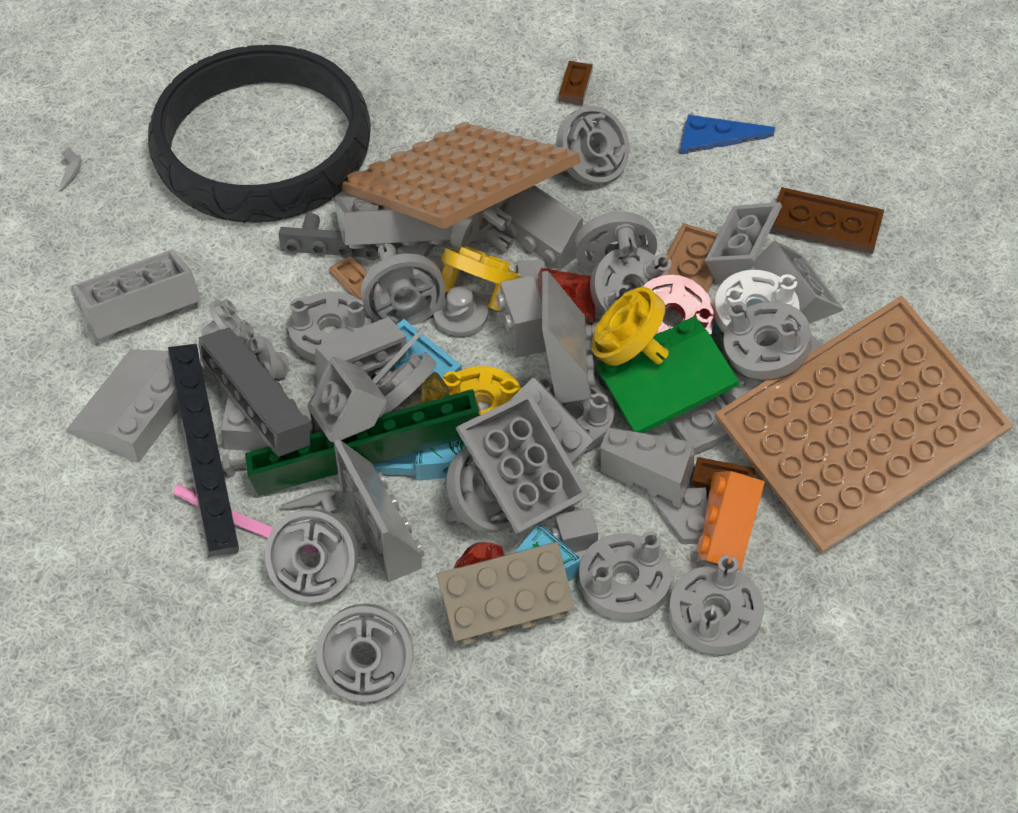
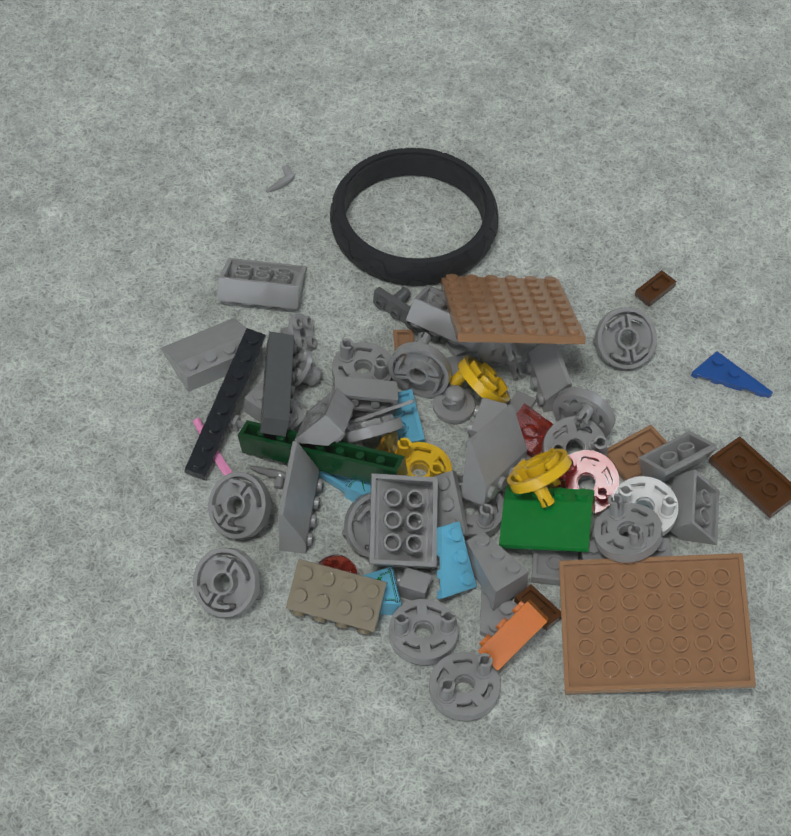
camera: 30 degrees right, 0 degrees up
(609, 484) = (455, 566): none -> medium azure wing

